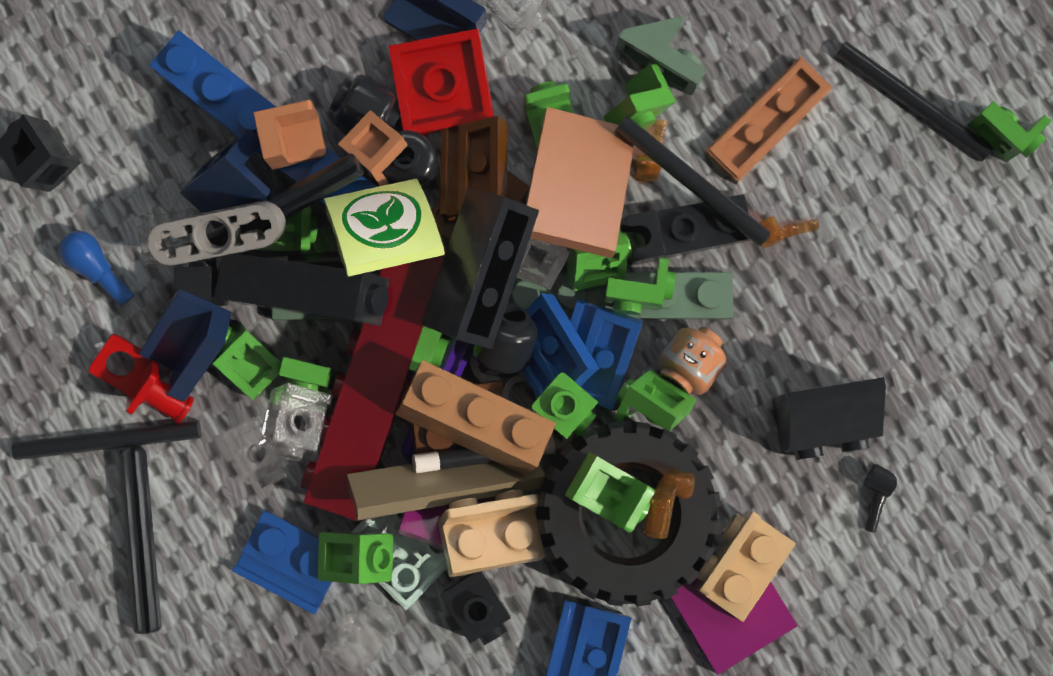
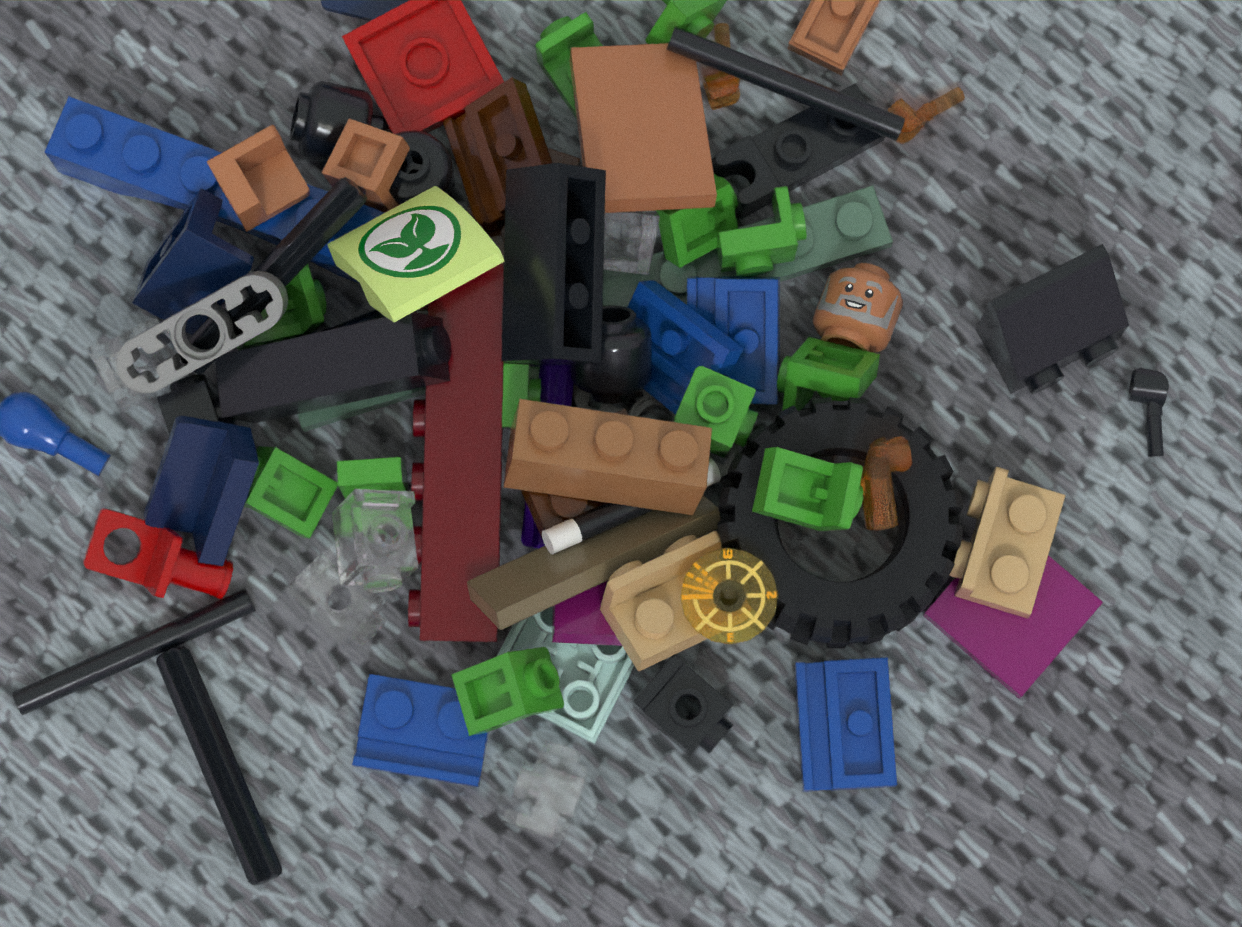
camera: 15 degrees left, 5 degrees down
(530, 547) = (729, 596): none -> clear yellow piece

